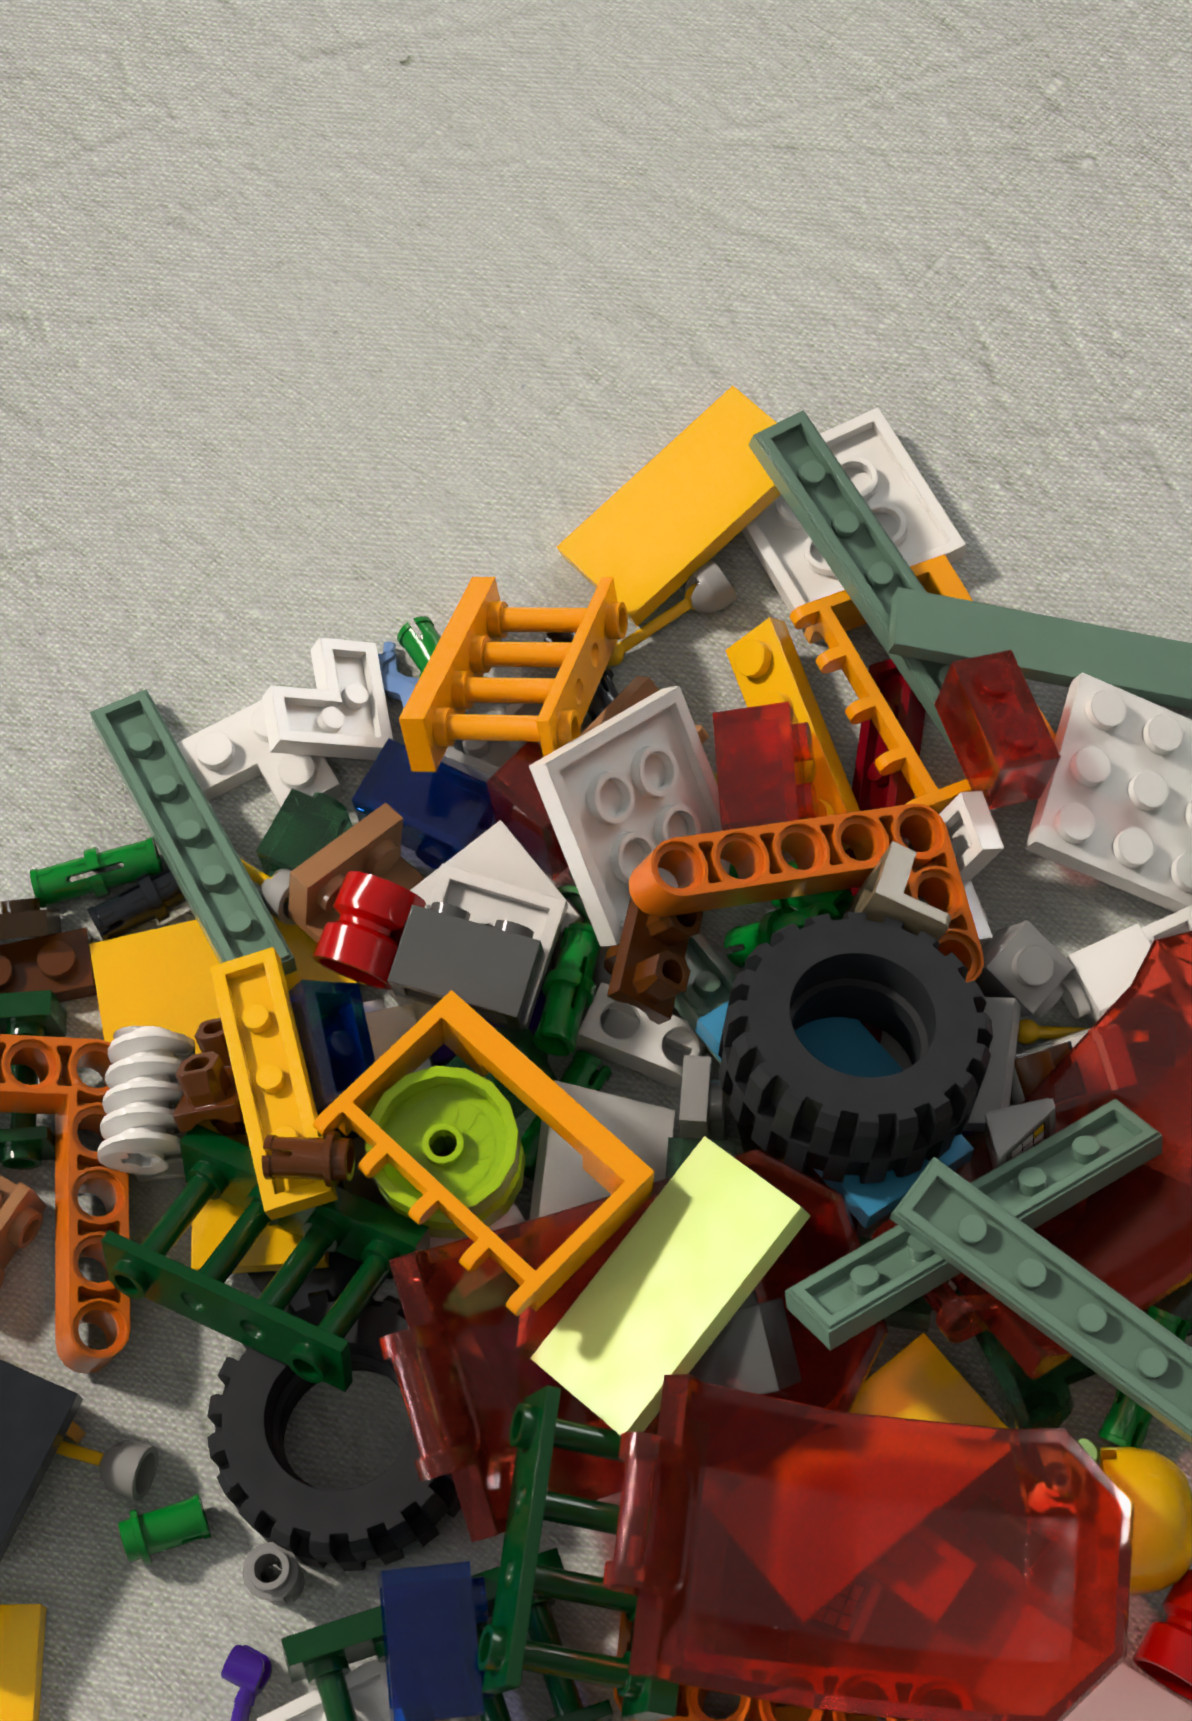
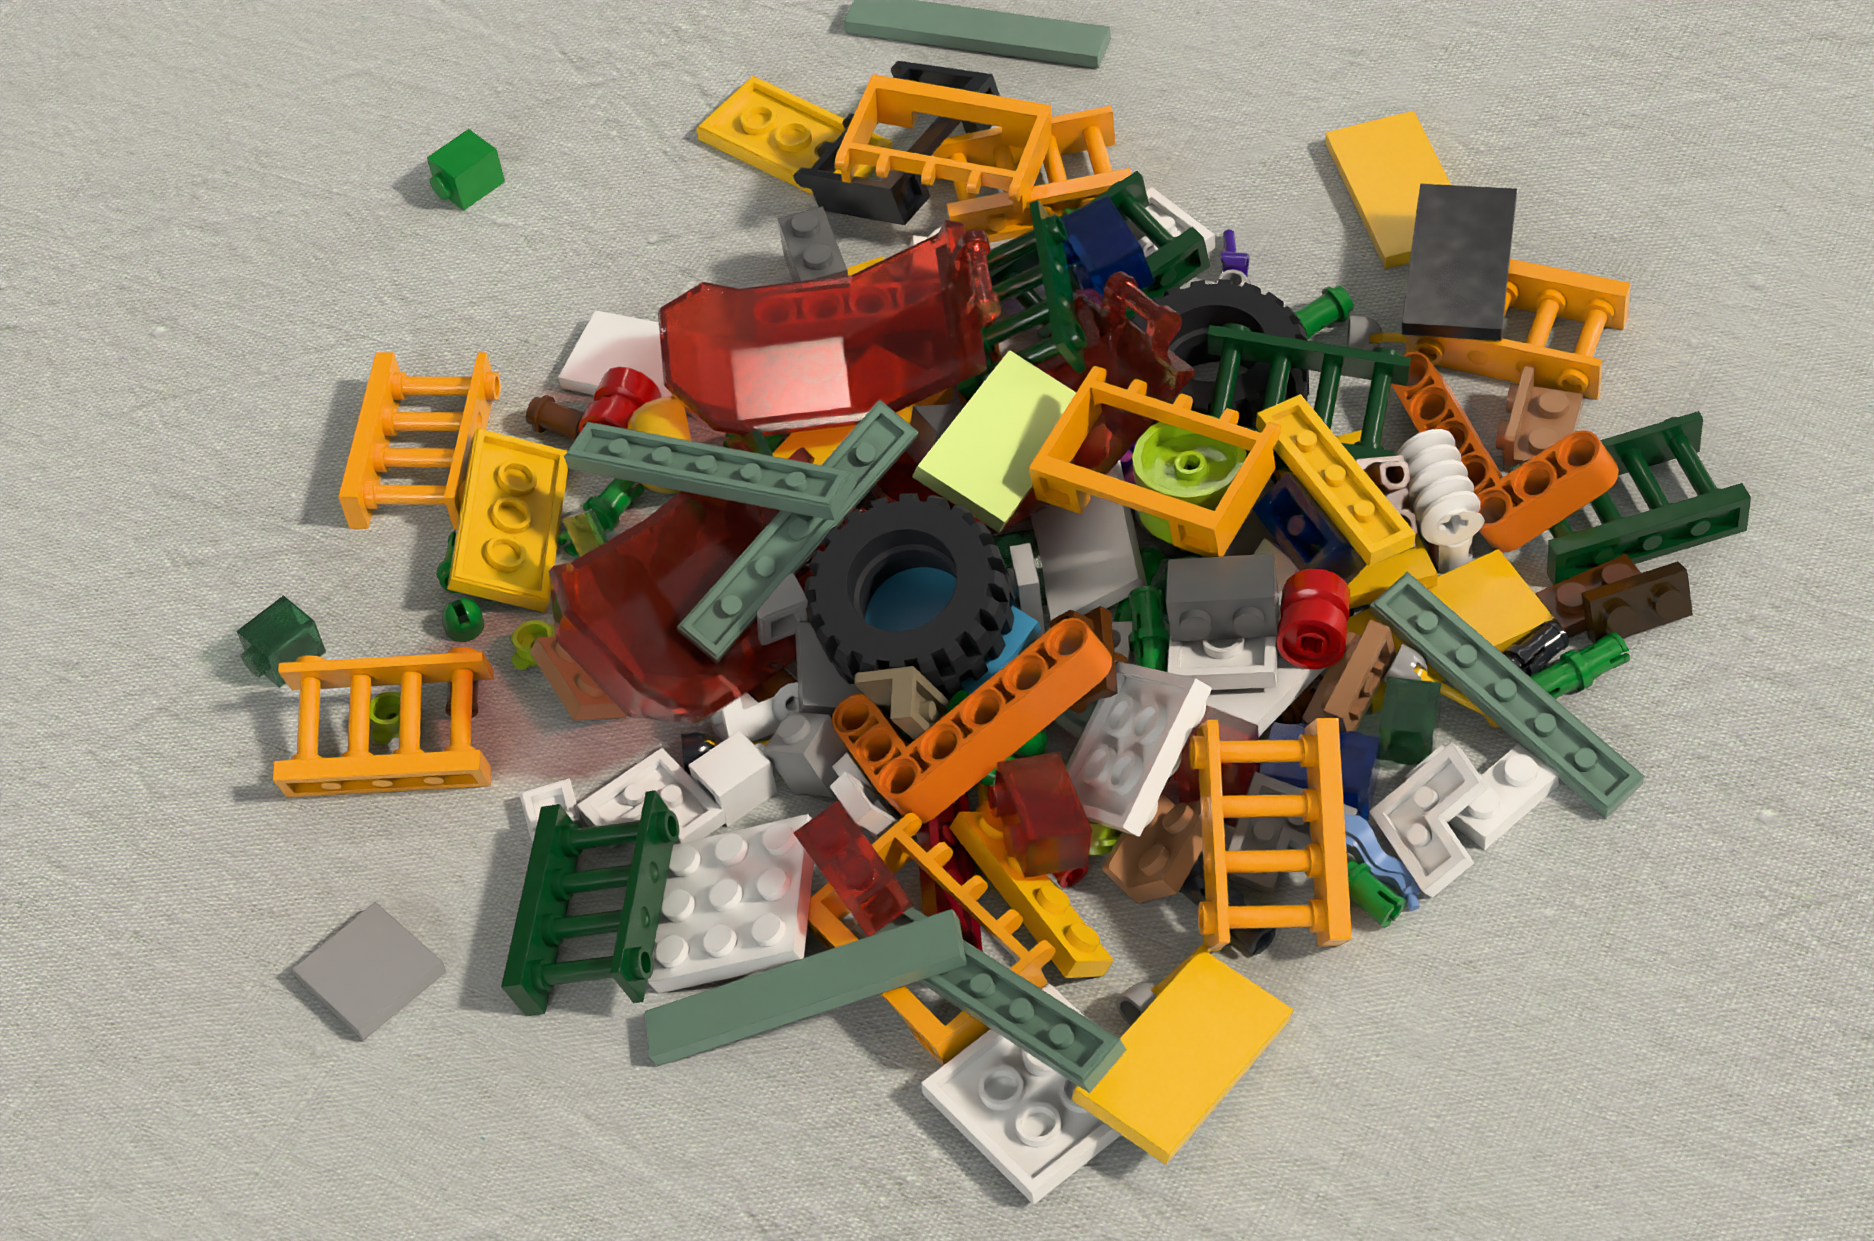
camera: 165 degrees right, 15 degrees down
(309, 1158) = (1287, 412): reddish brown pin -> none

